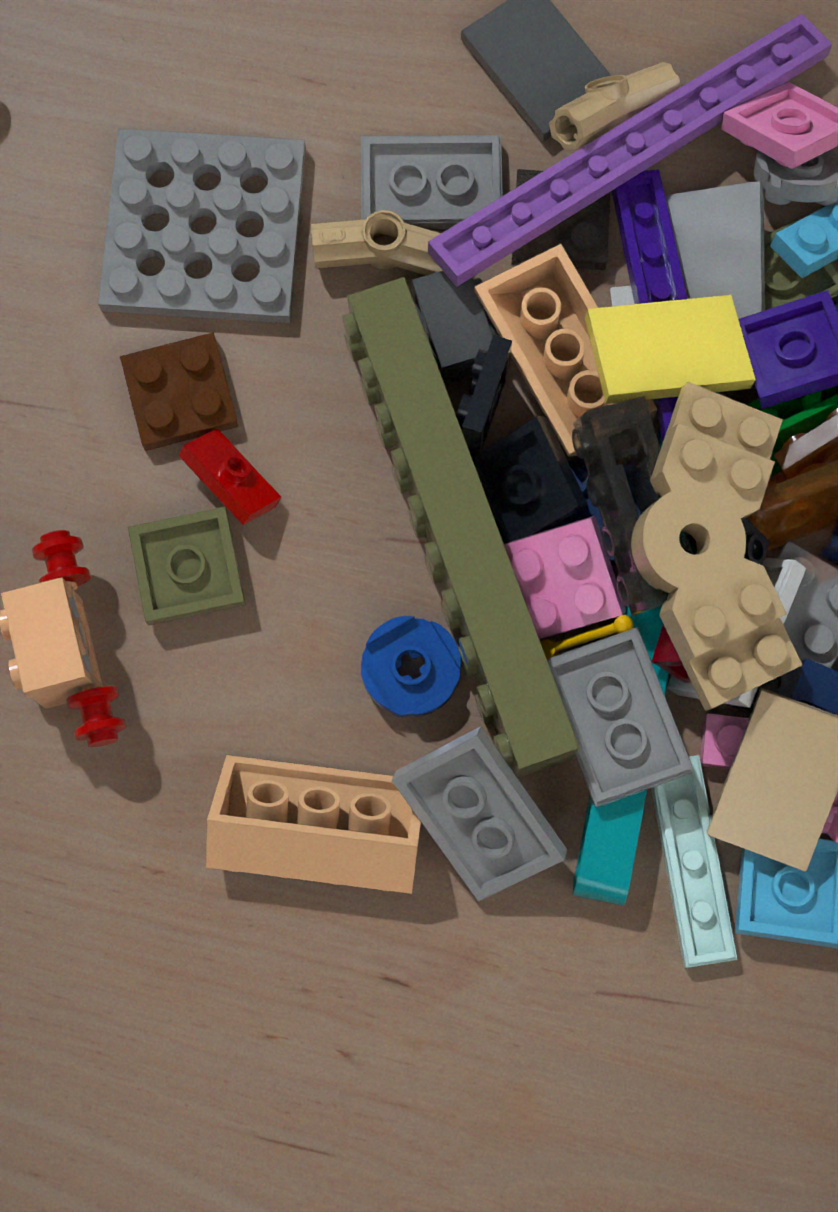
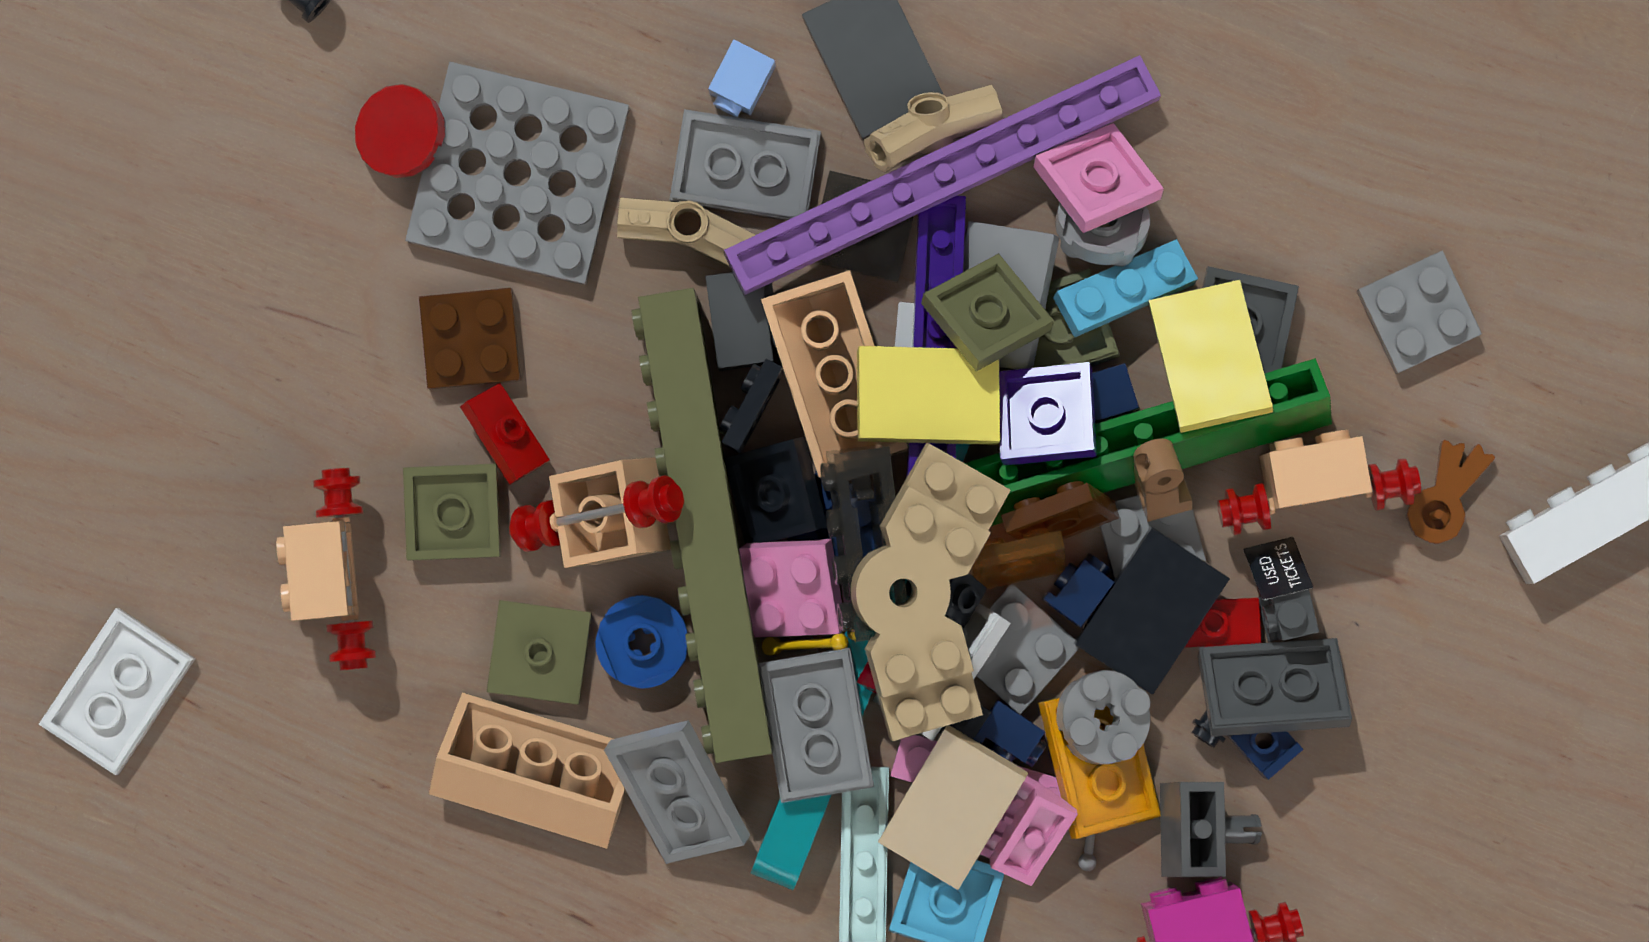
camera: 15 degrees right, 10 degrees up
(76, 198) = (399, 131): none -> red tile
(302, 697) = (539, 652): none -> olive plate
(348, 531) = (602, 513): none -> light nougat brick
(413, 95) = (741, 79): none -> light blue brick
(711, 259) = (987, 312): none -> olive plate

